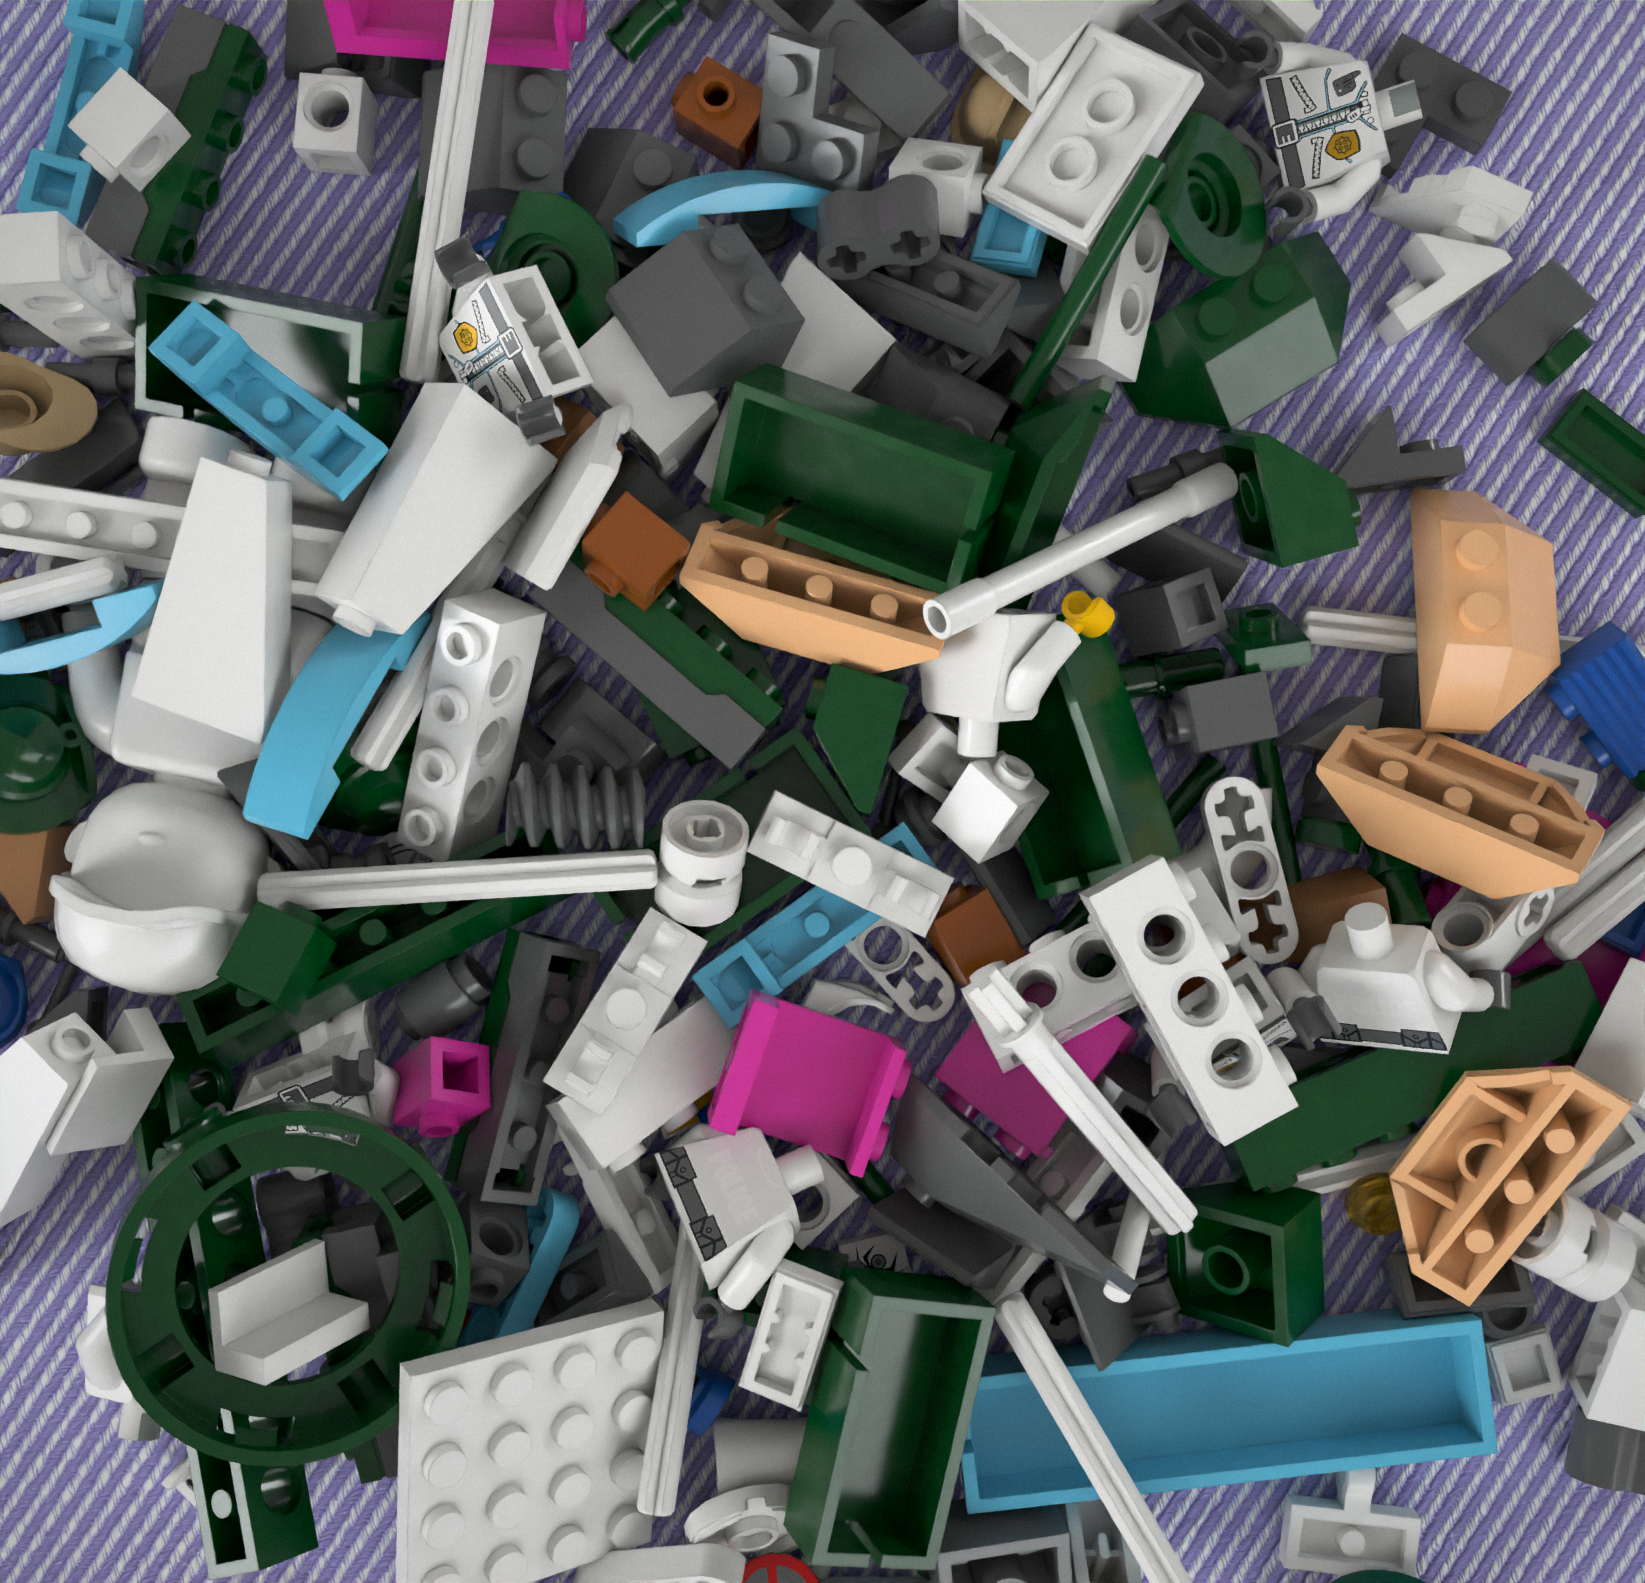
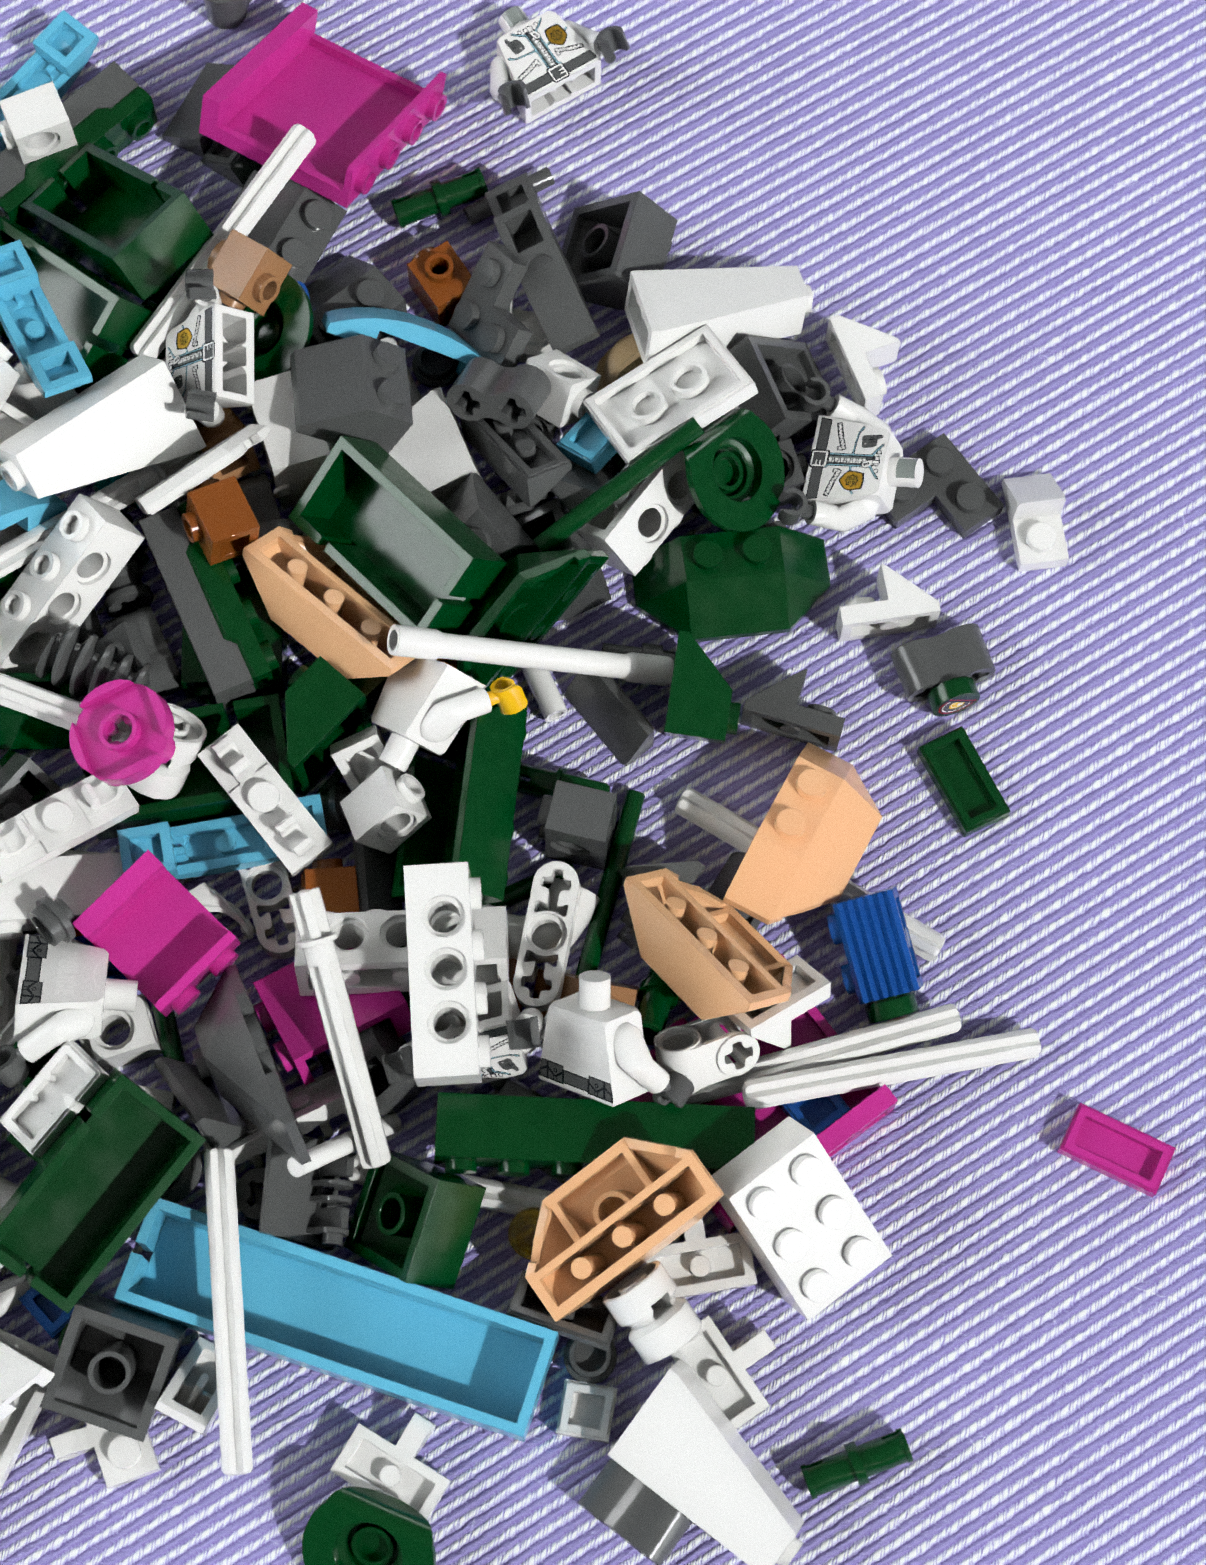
camera: 20 degrees right, 15 degrees down
(312, 215) = (131, 225): none -> dark green piece
(339, 148) = (184, 158): white brick -> none
(500, 214) = (246, 272): none -> medium nougat brick
(683, 1129) = (53, 920): none -> dark grey plate
(697, 879) = (145, 749): none -> dark pink plate
(1171, 612) = (584, 741): dark grey brick -> none
(1264, 639) = (637, 783): dark green plate -> none
(1328, 835) = (623, 951): dark green tile -> none
(1459, 205) = (918, 558): white wing -> none
(1553, 92) = (1035, 521): none -> white slope

